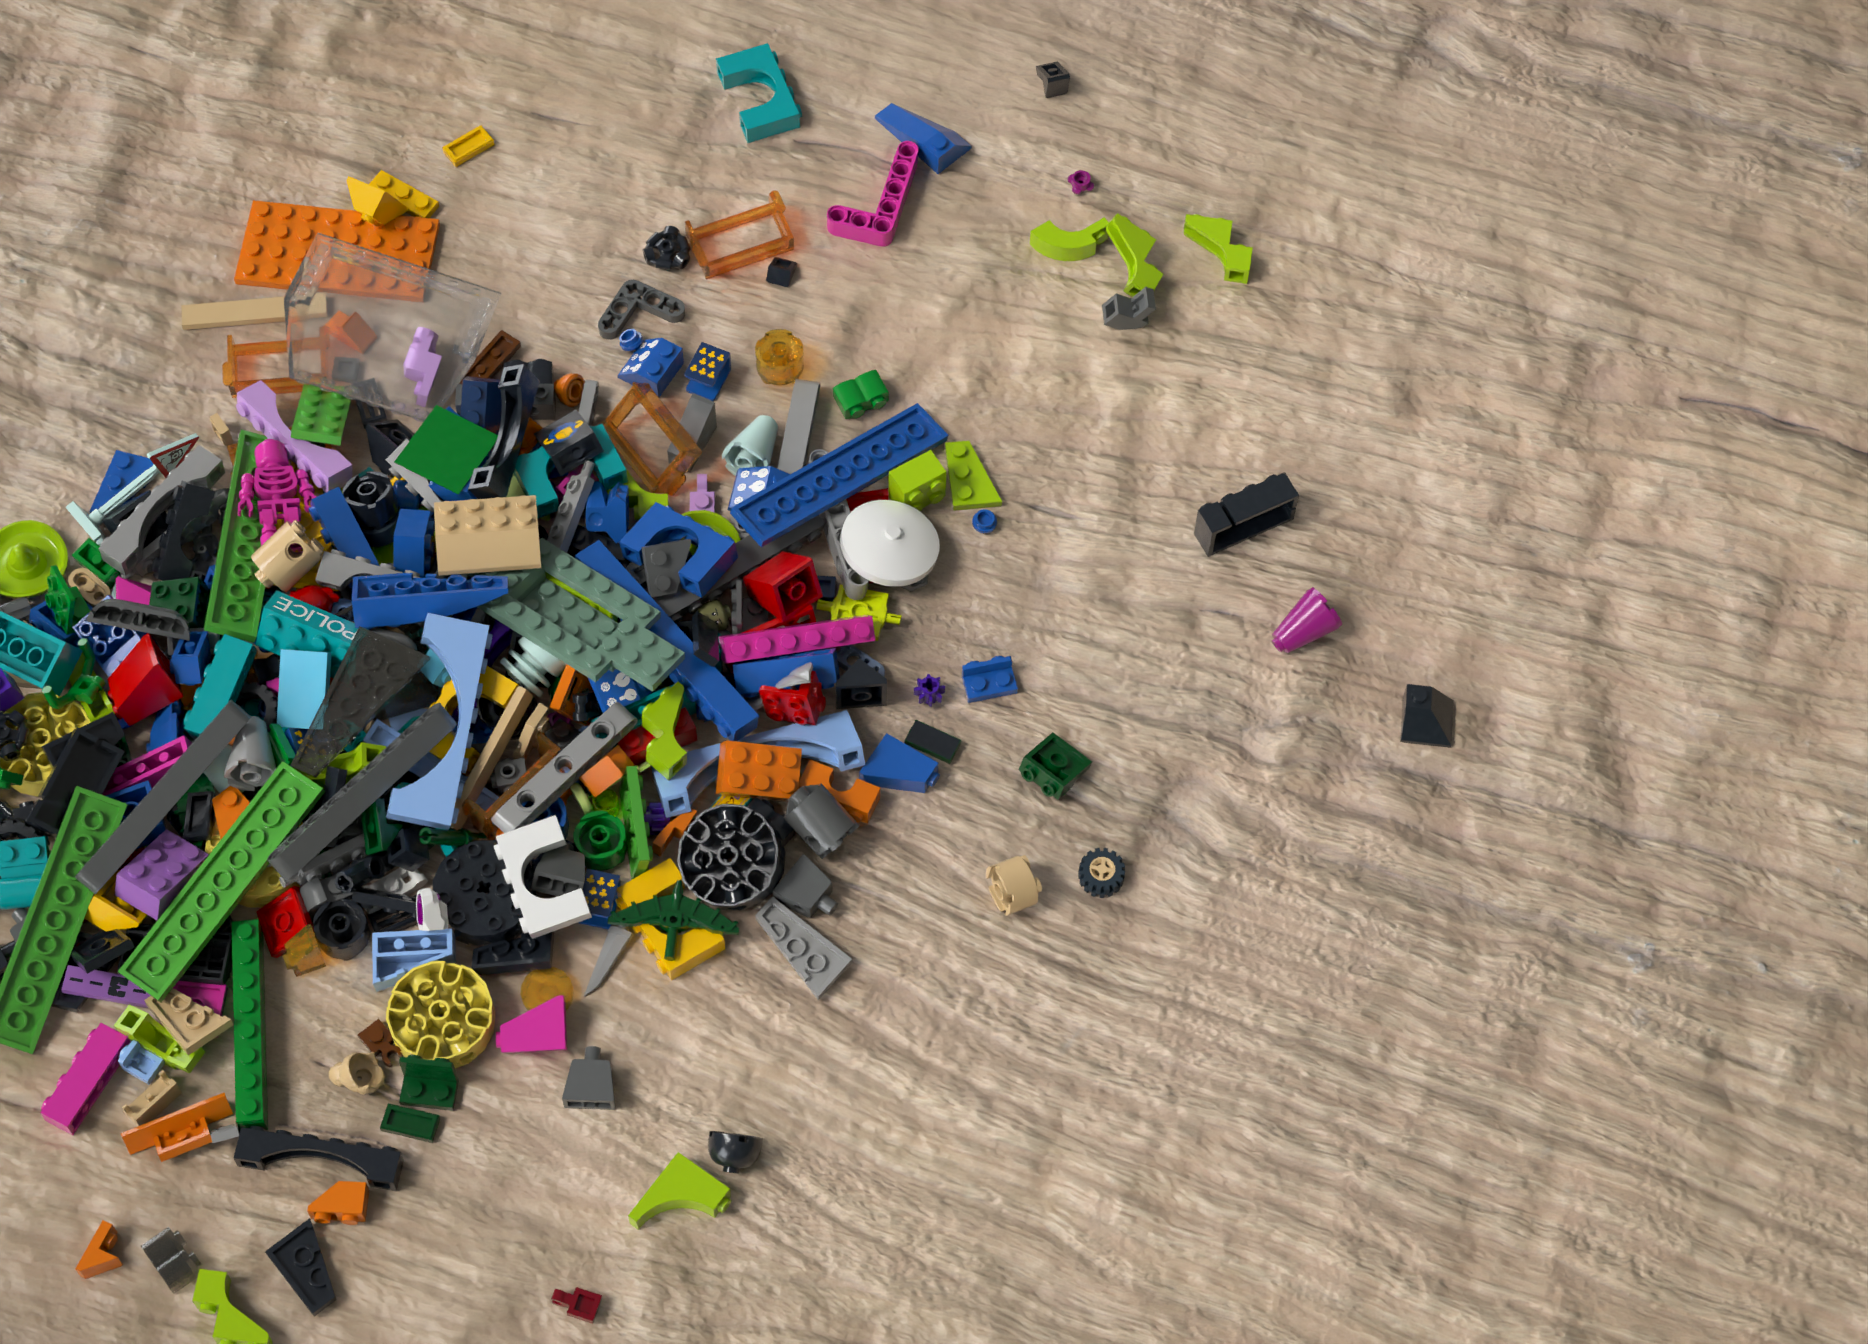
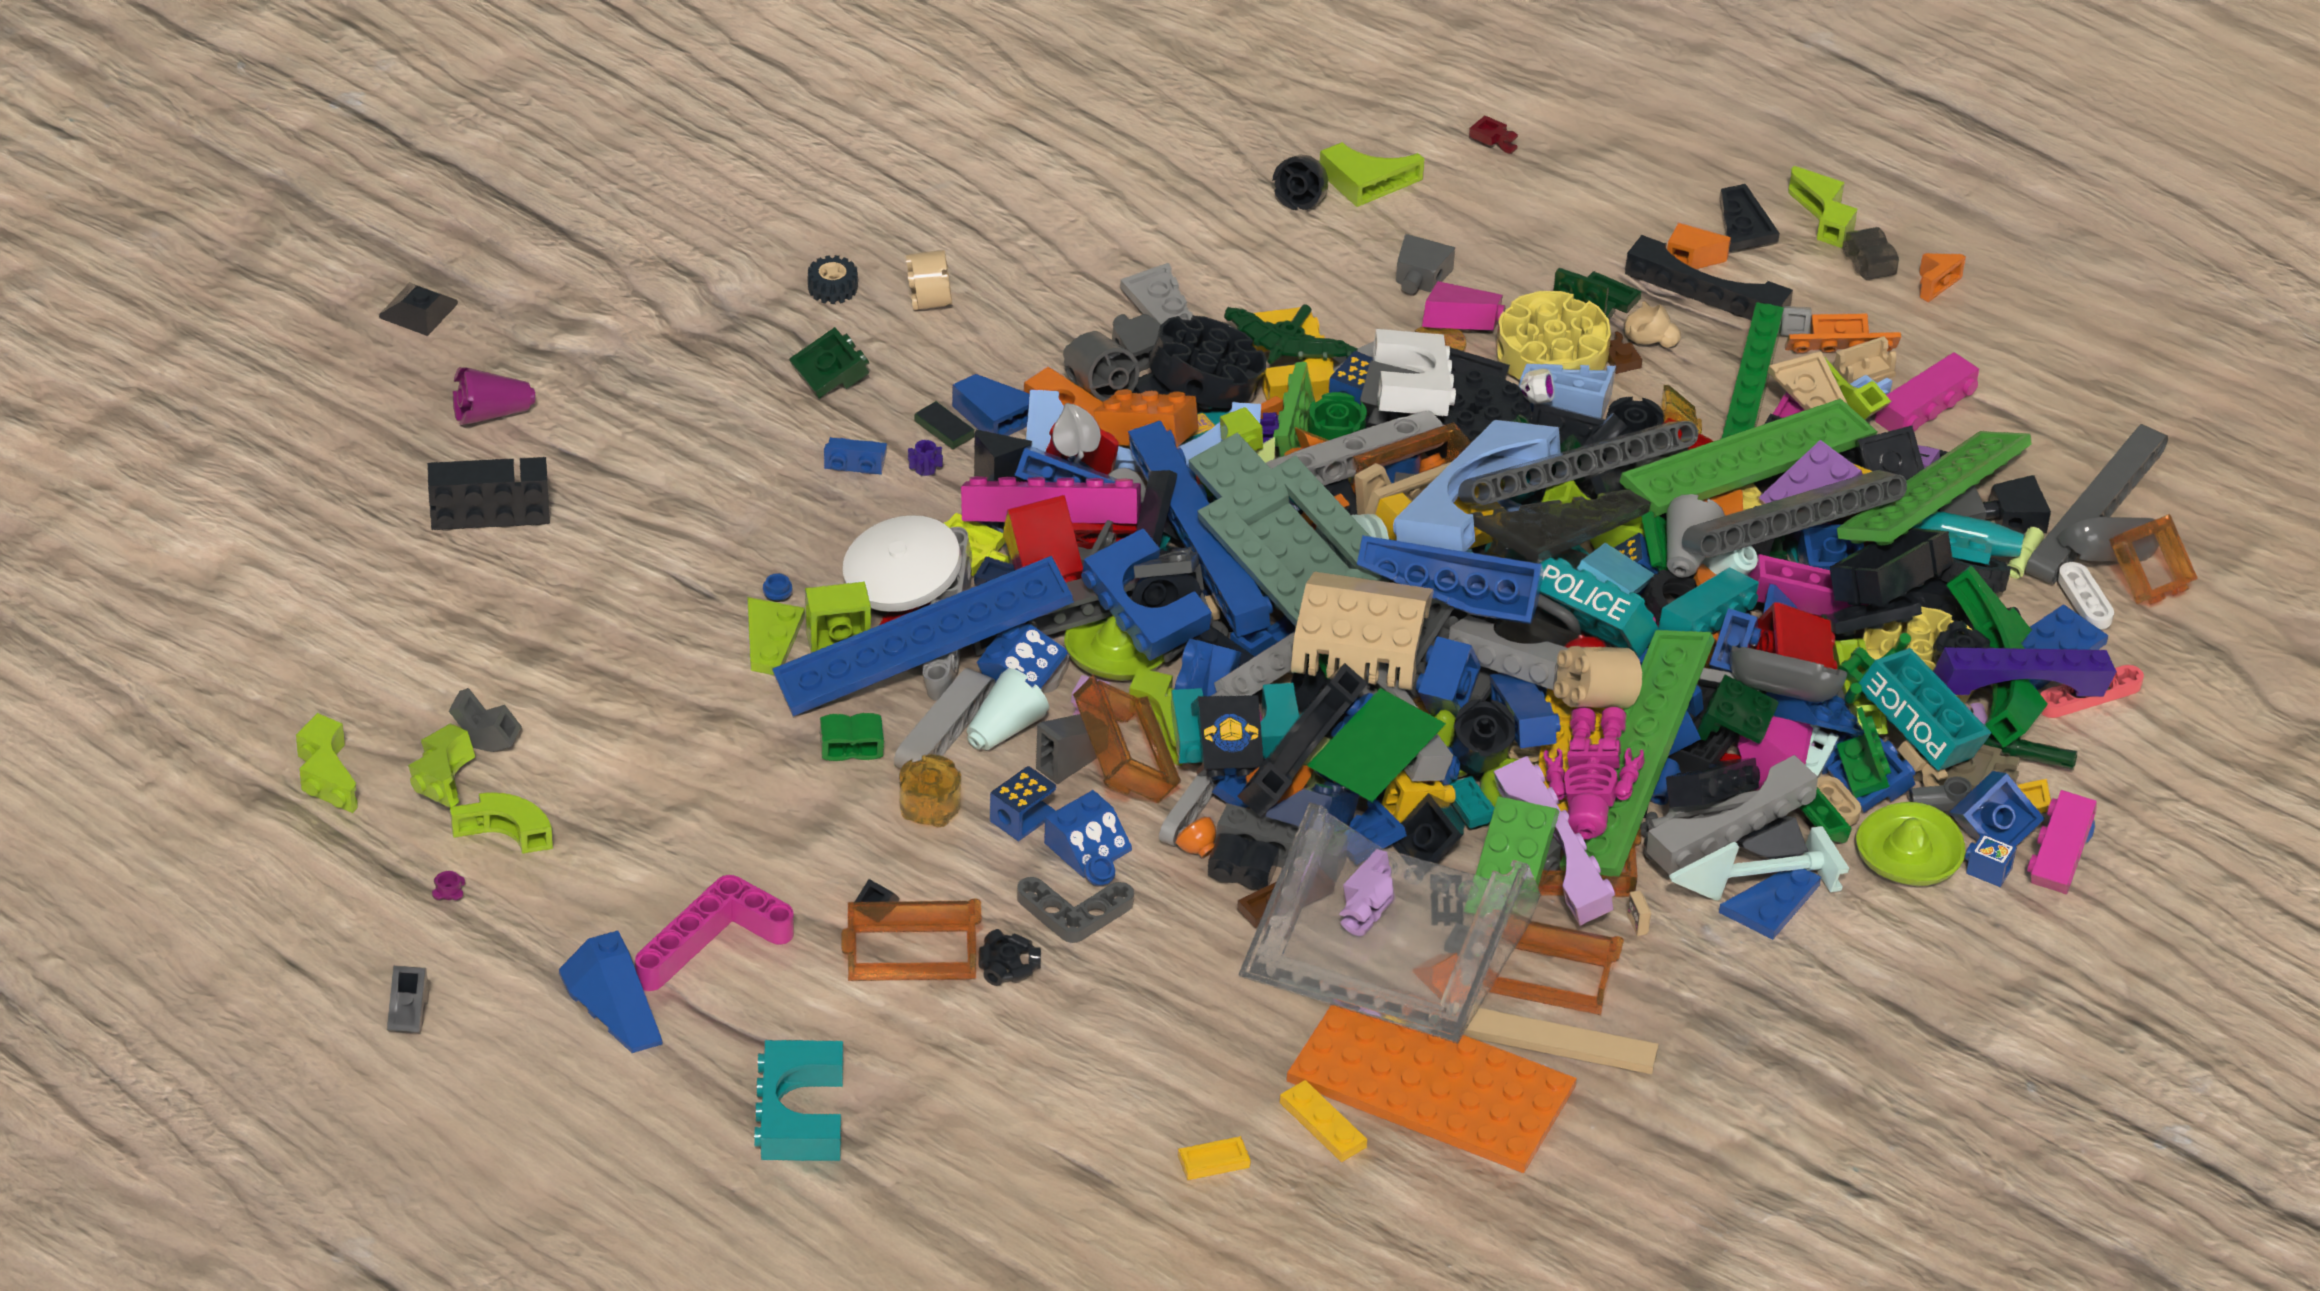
camera: 160 degrees left, 20 degrees down
(373, 202) = (1365, 1088): yellow slope -> none

